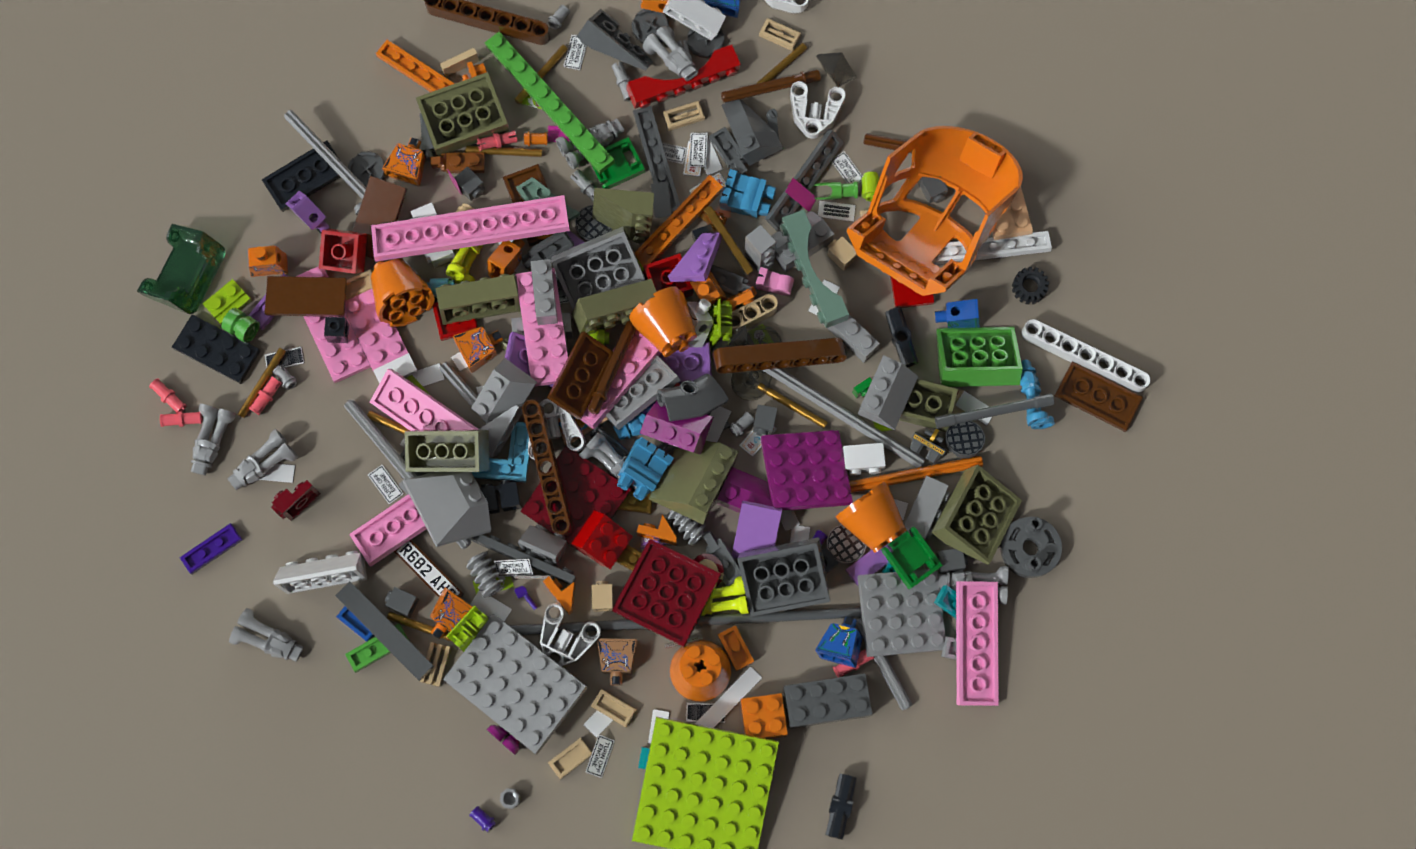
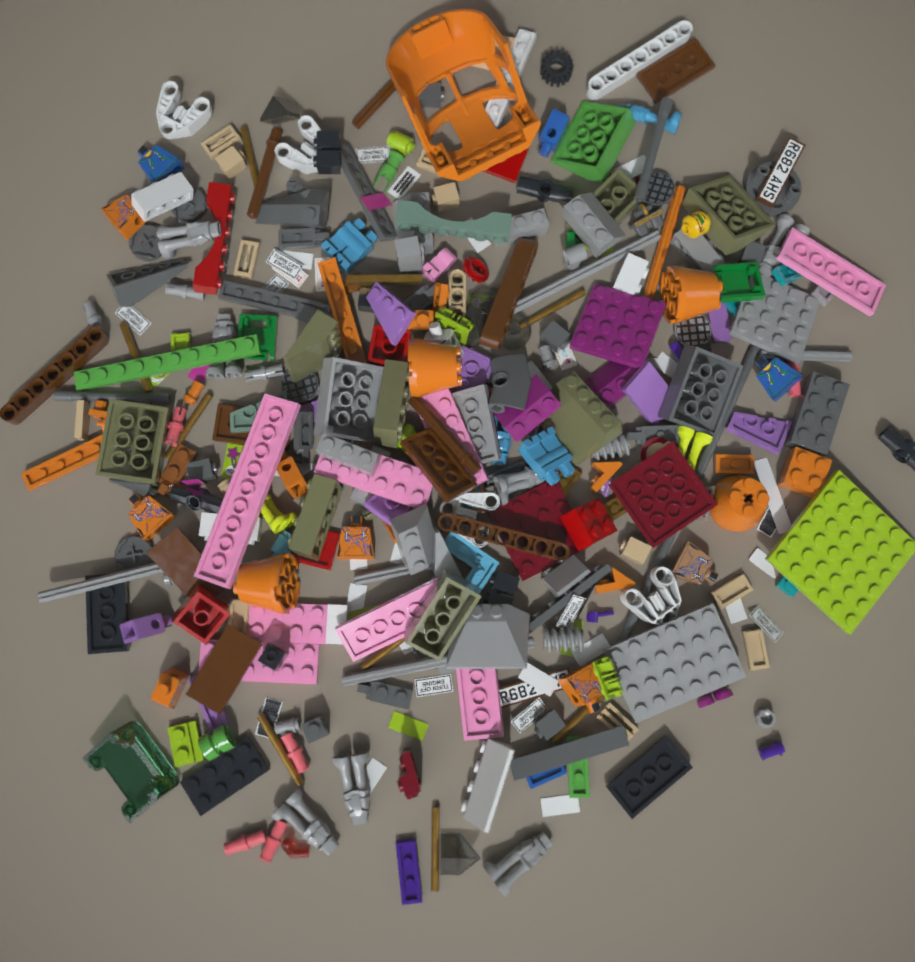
camera: 65 degrees left, 5 degrees up
(181, 439) = (293, 850): none -> clear red arm
(241, 561) = (435, 849): none -> pearl gold bar
(245, 579) = (456, 854): none -> clear smoke slope
(293, 401) = (315, 729): none -> dark grey brick
(334, 651) = (559, 805): none -> white sticker
(338, 481) = (408, 725): none -> lime sticker
(356, 447) = (387, 694): none -> dark grey hinge
(400, 717) = (649, 776): none -> black plate
(401, 581) = (529, 715): none -> white sticker
(437, 571) = (538, 679): none -> white sticker
(441, 191) = (196, 499): none -> black piece
(501, 199) = (231, 459): none -> sticker
(512, 108) = (154, 398): none -> dark grey piece
(575, 103) = (180, 341): none -> lime tile
(764, 53) = (231, 162): none -> tan brick
(782, 658) = (760, 431): none -> medium lavender wing
(793, 311) = (472, 263): none -> red gear
(822, 124) = (328, 152): none -> black piece
(848, 395) = (574, 256): none -> light grey piece
(943, 488) = (696, 224): none -> yellow head
(1049, 544) = (780, 172): none -> tile

